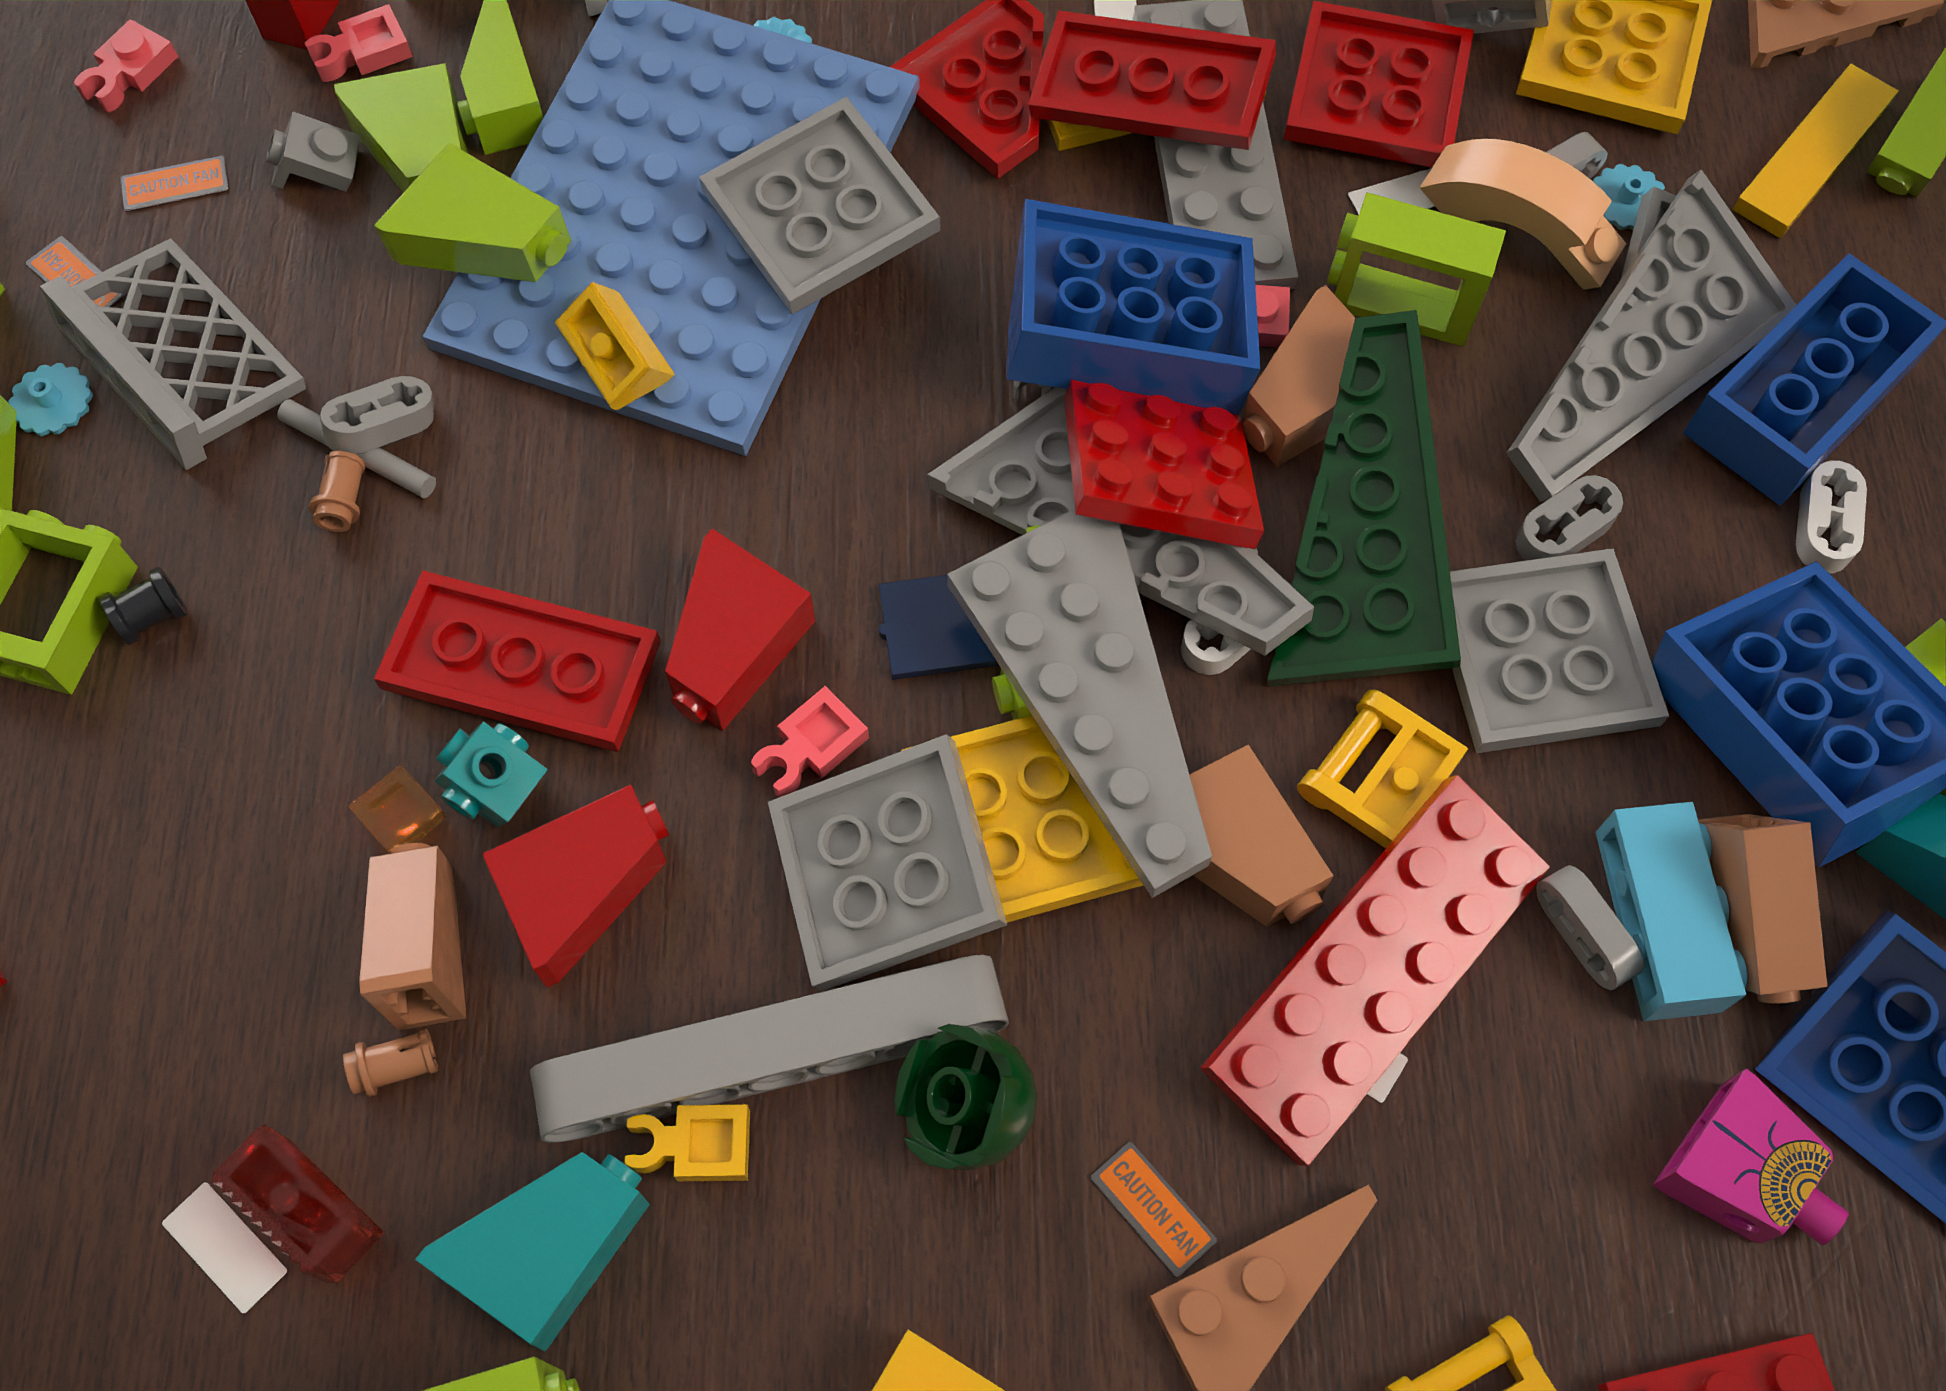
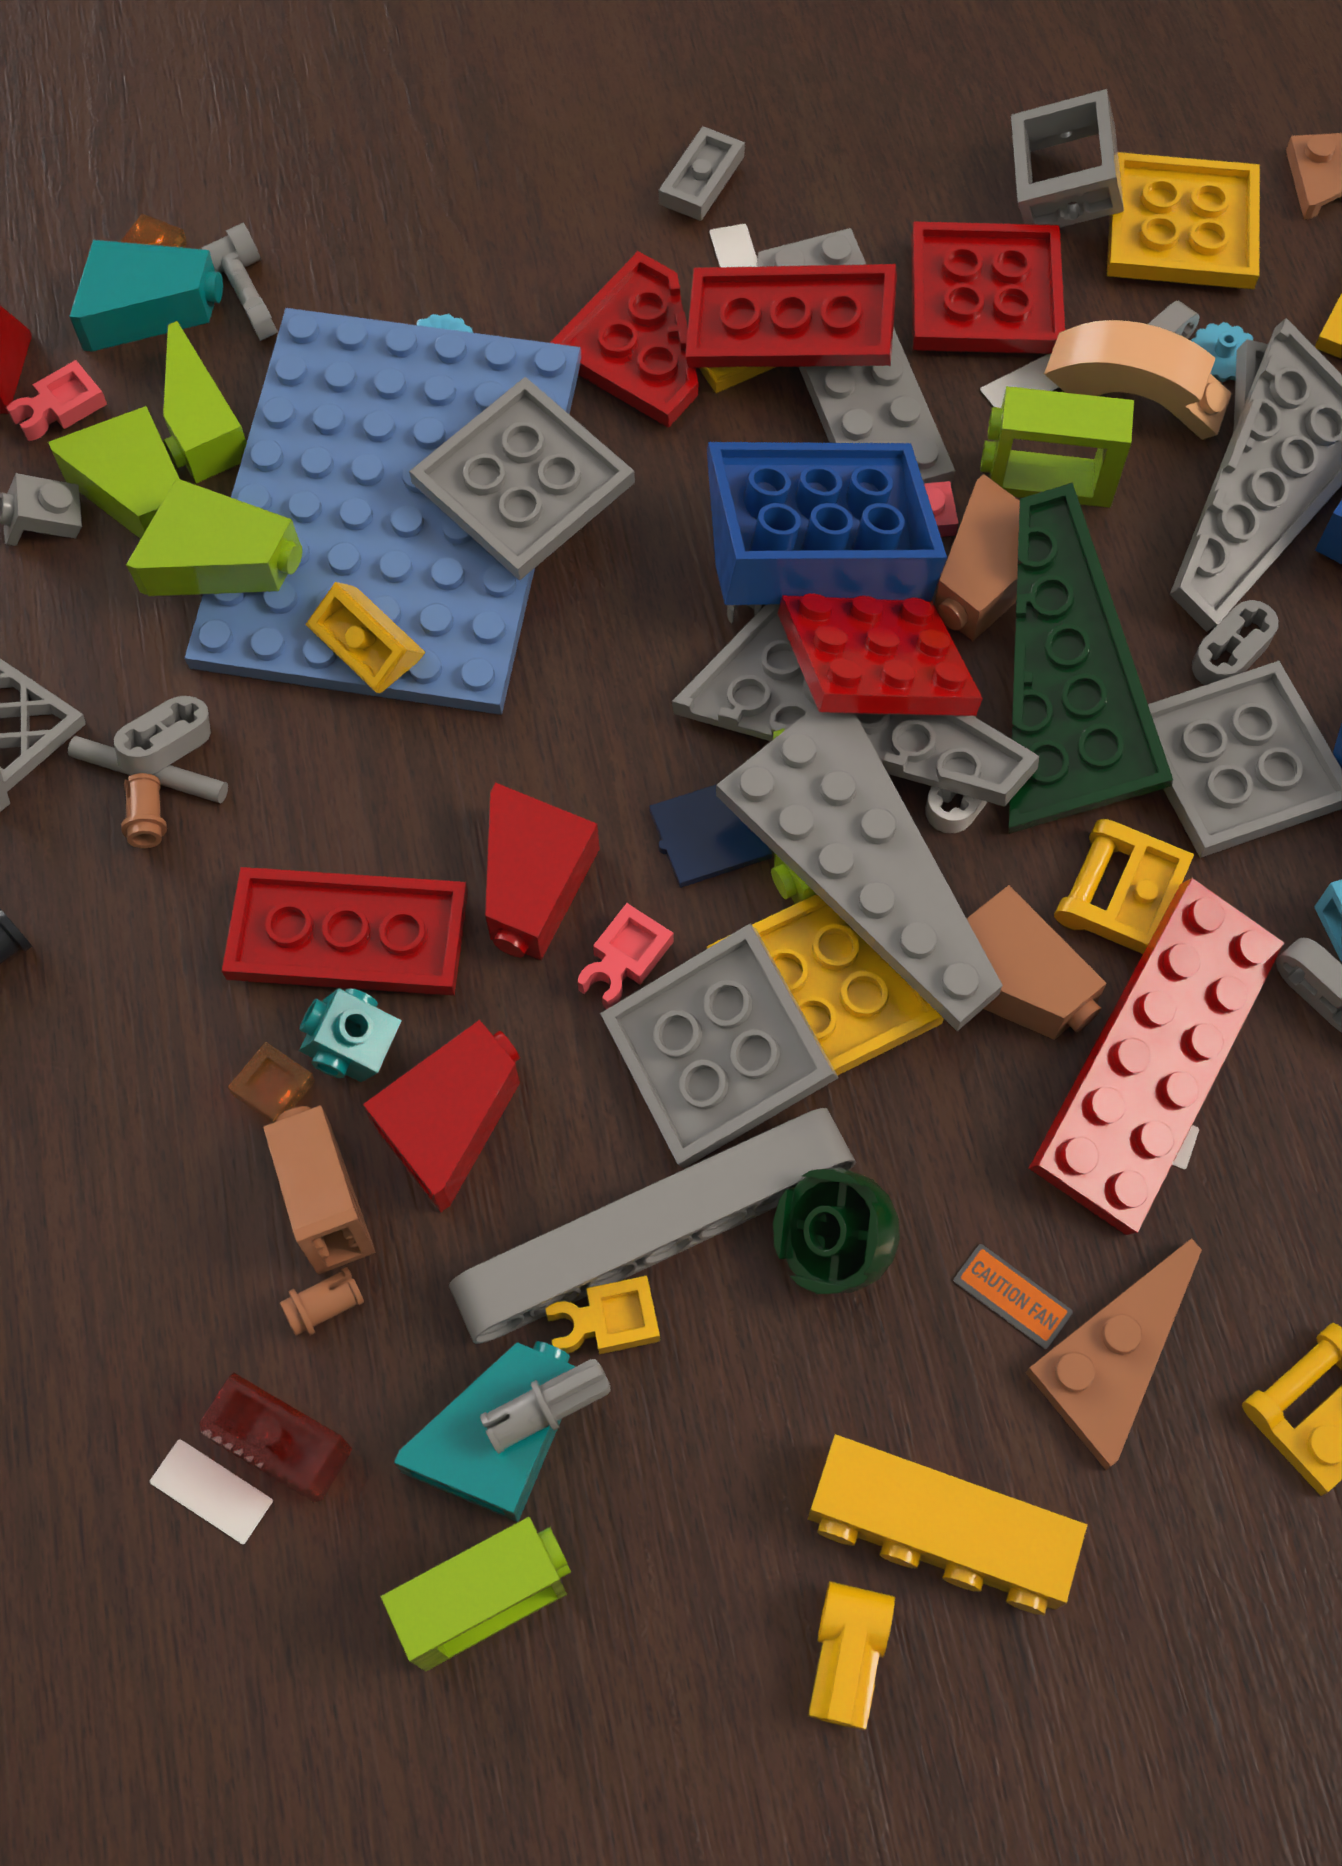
camera: 10 degrees left, 0 degrees up
(590, 1230) = (545, 1404): none -> light grey axle

